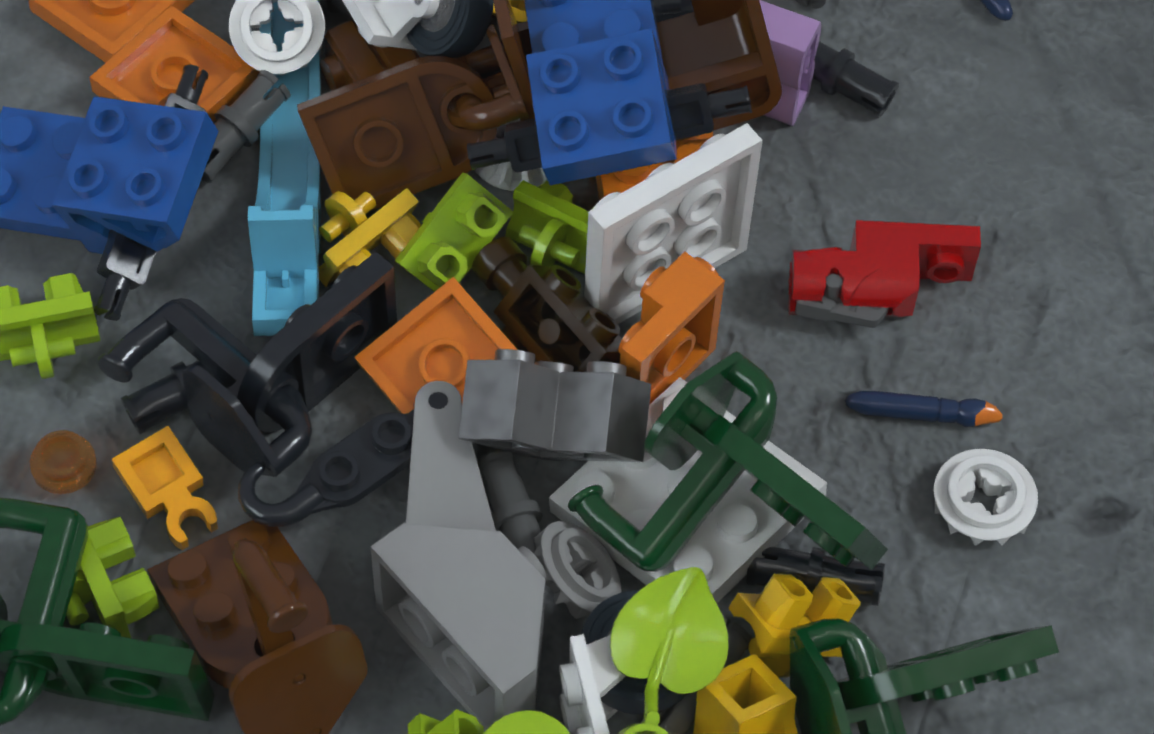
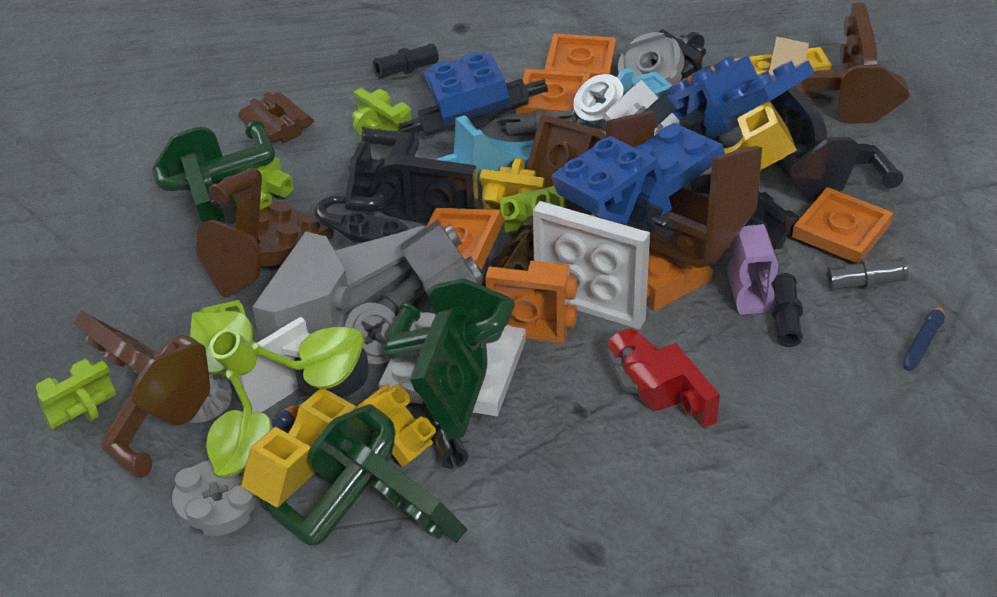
camera: 65 degrees right, 15 degrees down
(63, 462) = (315, 155): clear orange plate -> none
(162, 479) = (324, 182): light orange plate -> none
(924, 408) = (603, 455): dark blue piece -> none
(996, 475) = (550, 470): white gear -> none

